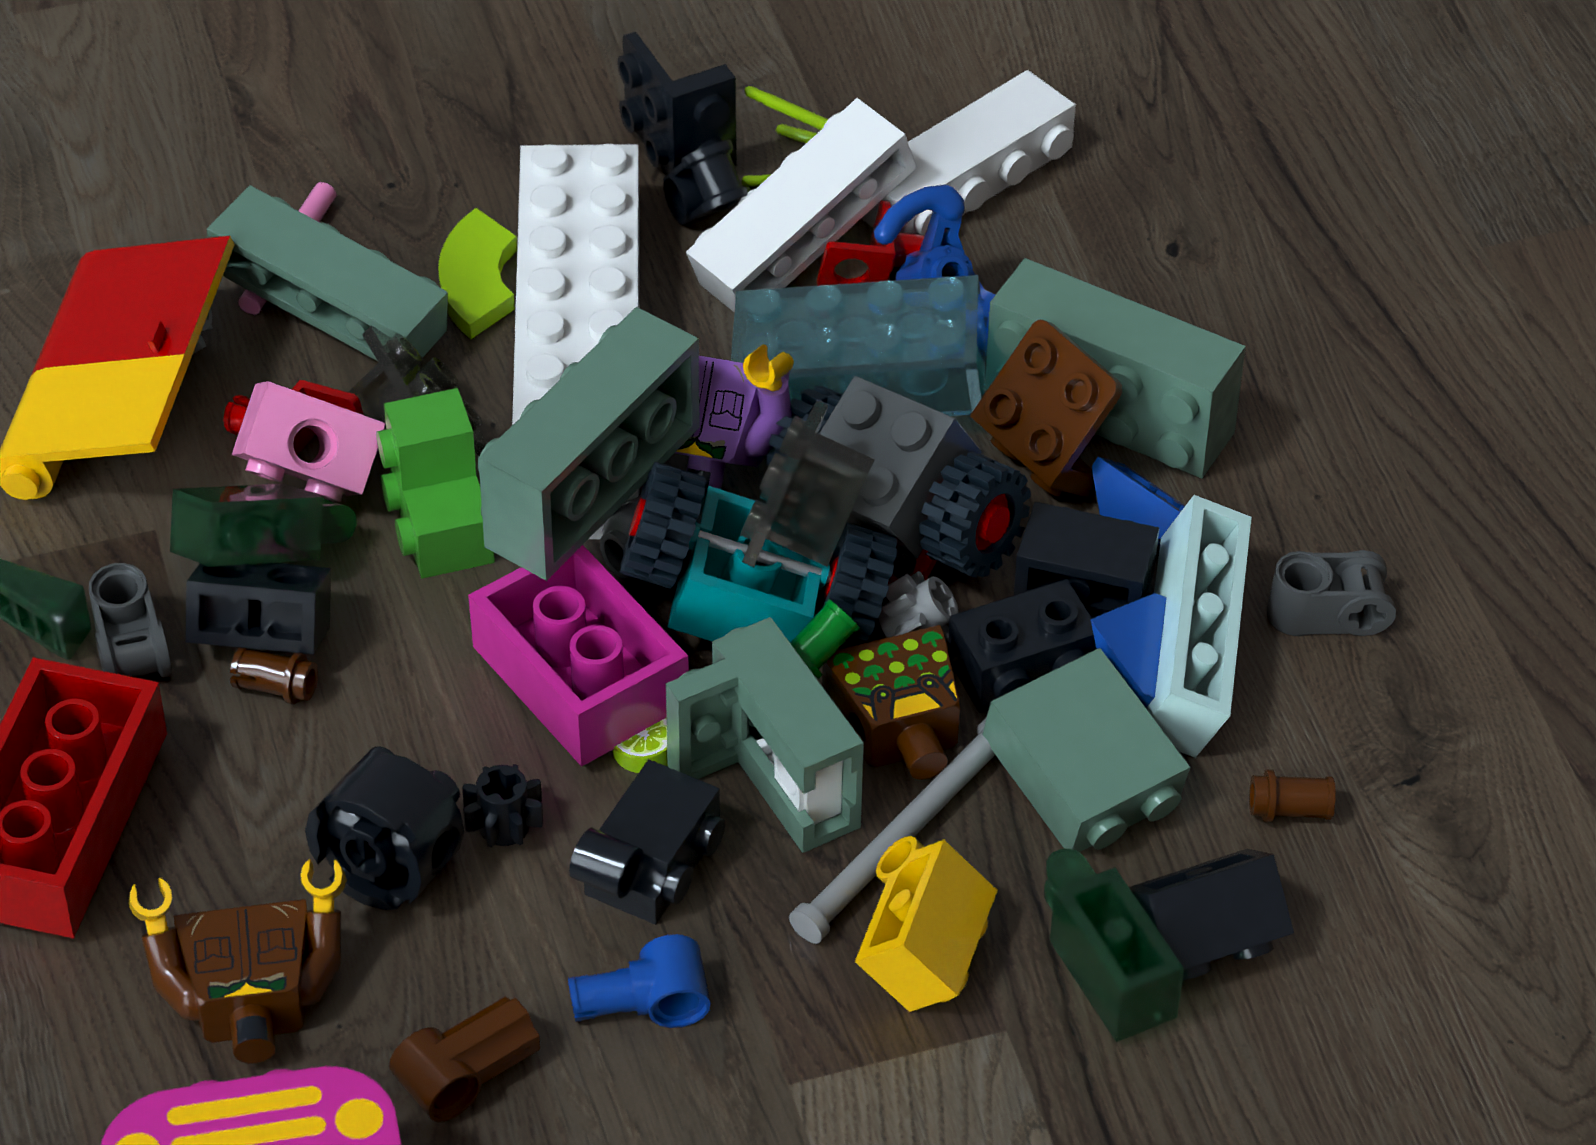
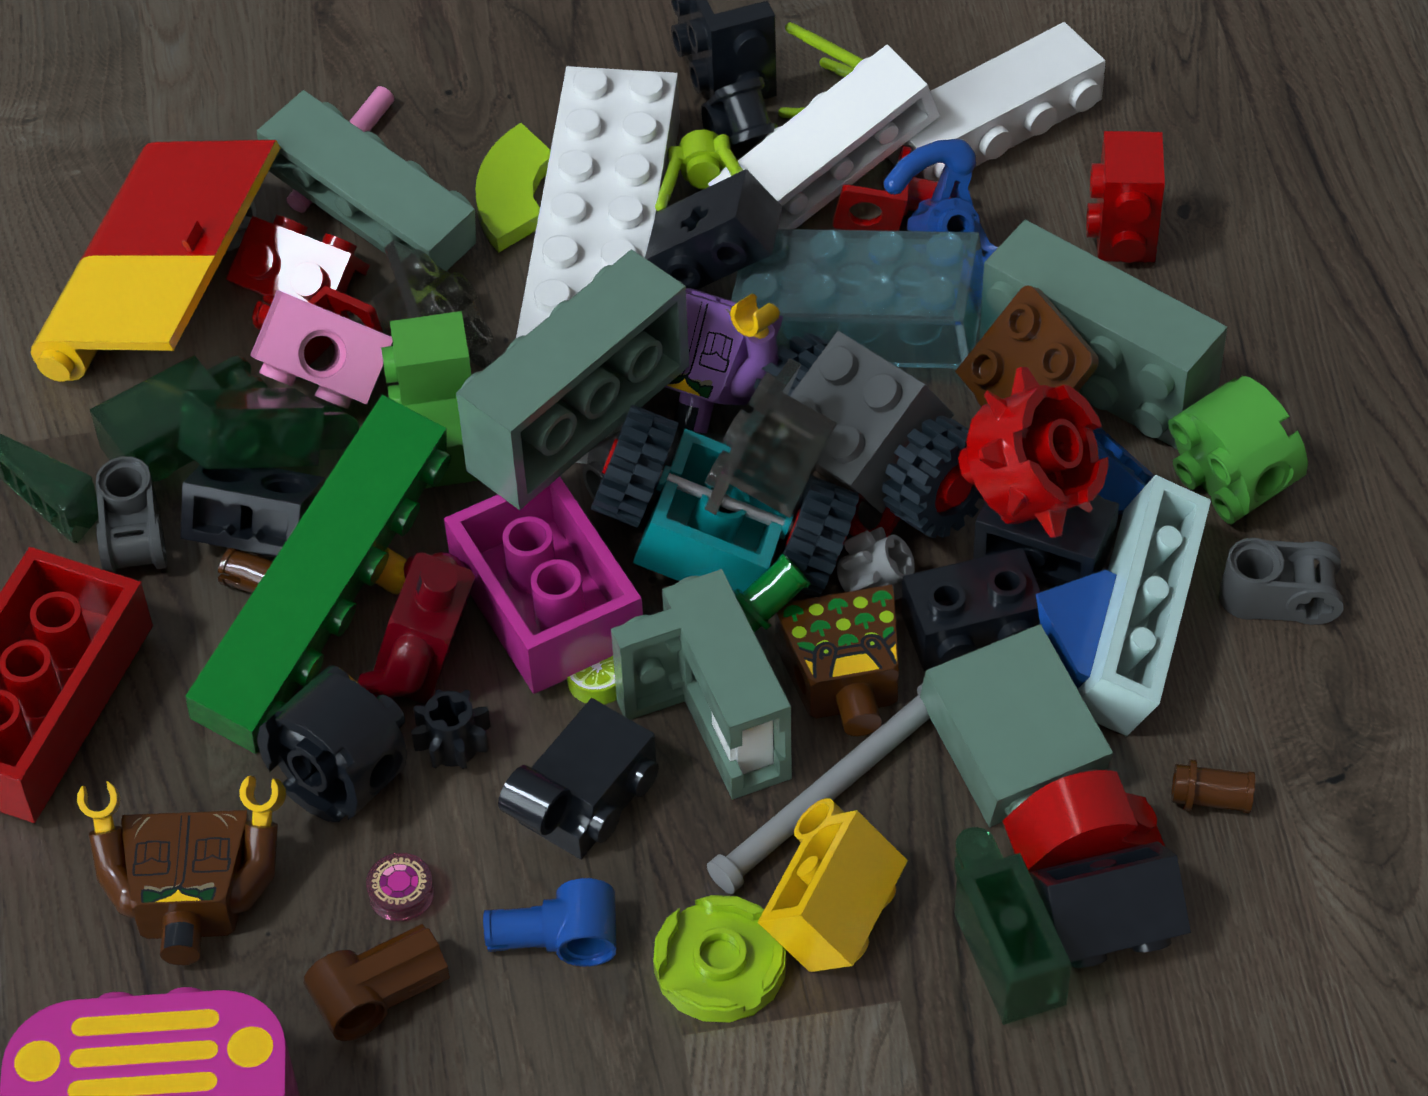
camera: 10 degrees right, 5 degrees up
(136, 520) = (147, 416): none -> clear green brick
(245, 353) = (286, 260): none -> red bracket
(343, 662) = (320, 573): none -> green brick
(459, 699) = (422, 624): none -> dark red torso
(472, 966) = (400, 887): none -> tile
(673, 230) = (700, 158): none -> lime plant
(710, 288) = (715, 231): none -> black brick
(815, 1007) = (718, 960): none -> lime tile
(1073, 479) = (1035, 453): none -> red brick
(1120, 231) = (1128, 196): none -> red brick
(1165, 833) = (1080, 820): none -> red brick
(1269, 466) = (1237, 448): none -> bright green brick

